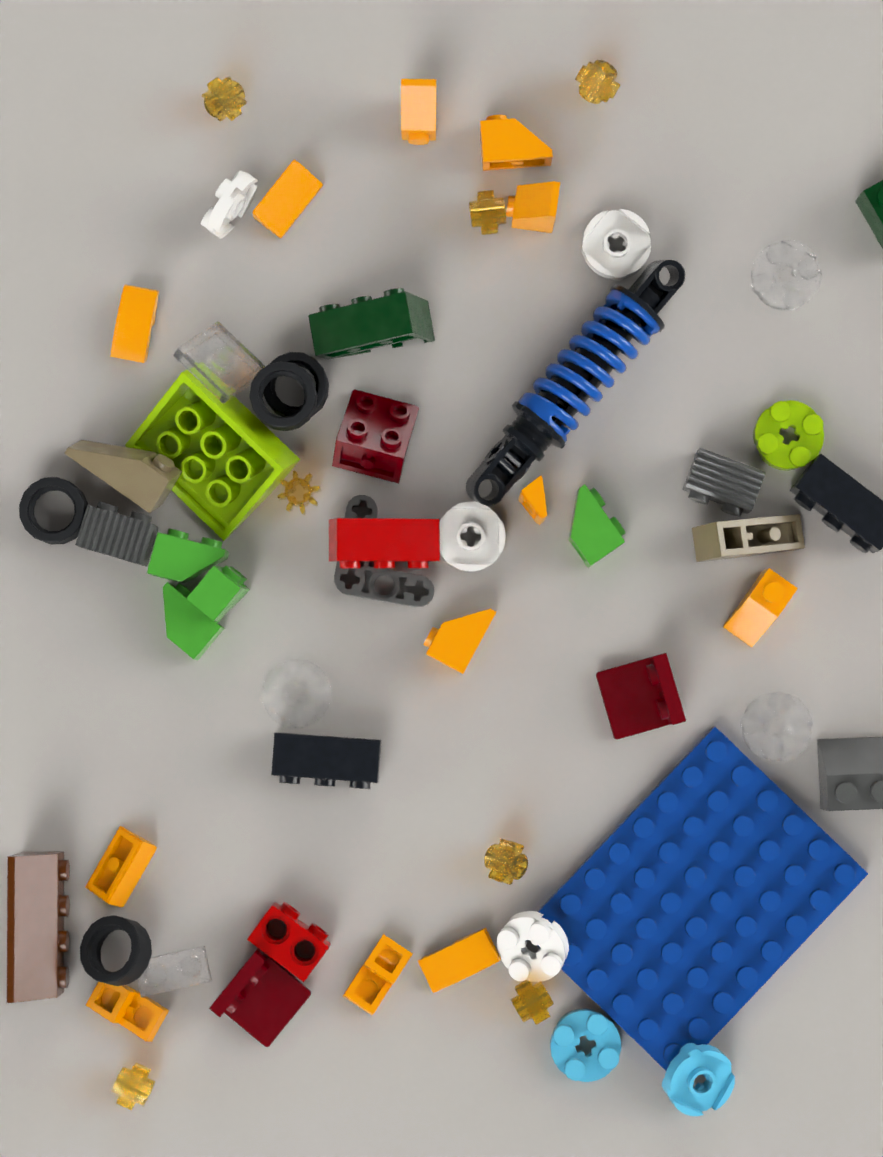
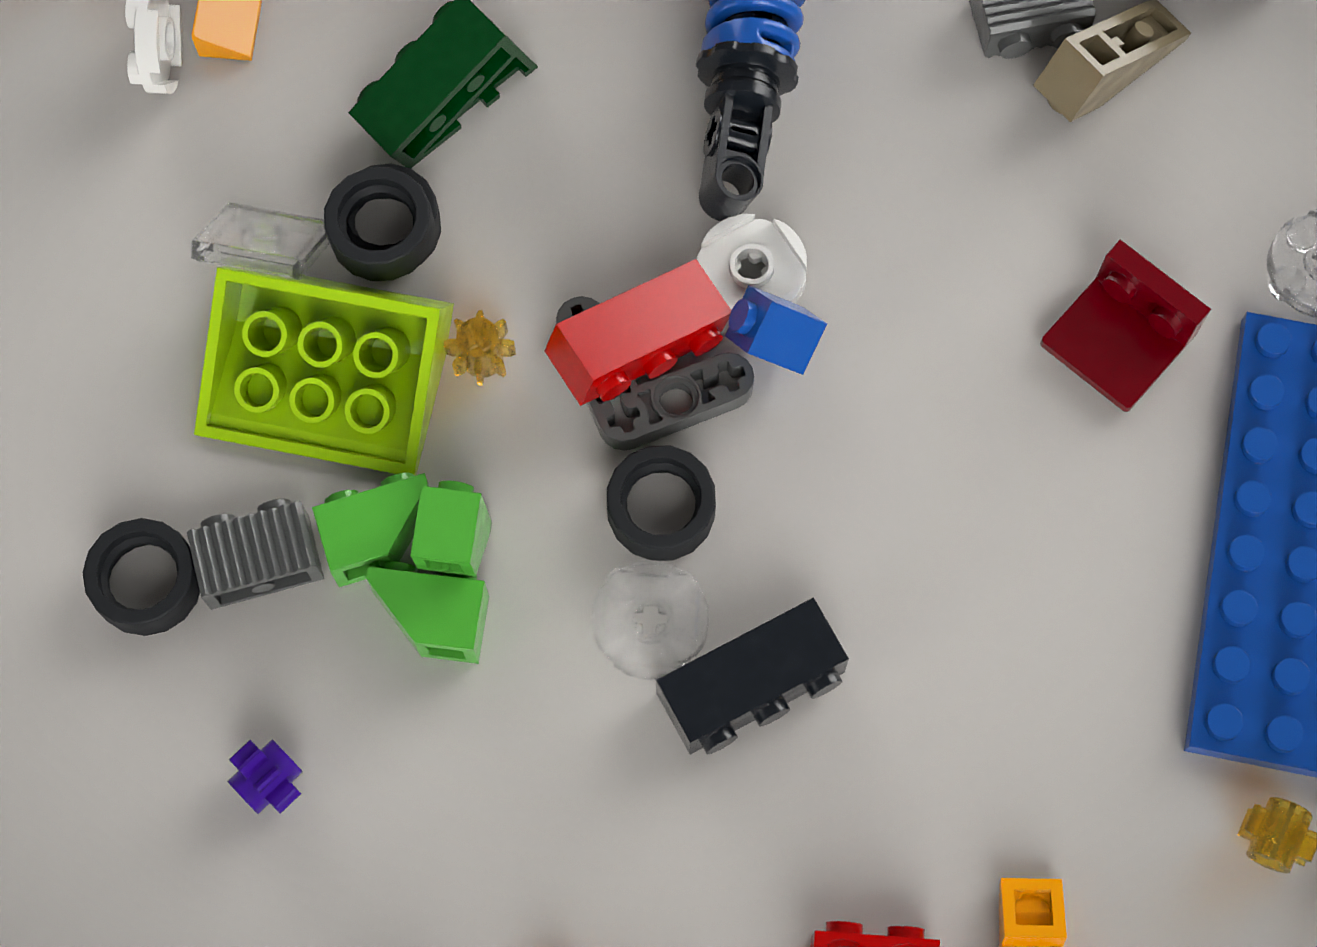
camera: 30 degrees left, 15 degrees down
(55, 656) = (265, 776): none -> dark purple gear
(133, 472) = (238, 453): dark tan slope -> none
(134, 323) = (112, 269): light orange slope -> none
(316, 625) = (661, 460): none -> black tyre
(374, 436) = (539, 221): dark red bracket -> none
(455, 584) = (775, 329): none -> blue brick
(458, 639) = (827, 406): light orange slope -> none
(459, 960) = (1134, 846): light orange slope -> none
(506, 861) = (1101, 660): clear yellow gear -> none
(522, 962) = (1224, 790): white plate -> none
(534, 501) = (809, 162): light orange slope -> none
(591, 530) = (905, 161): bright green slope -> none
(760, 607) = (1192, 126): light orange slope -> none

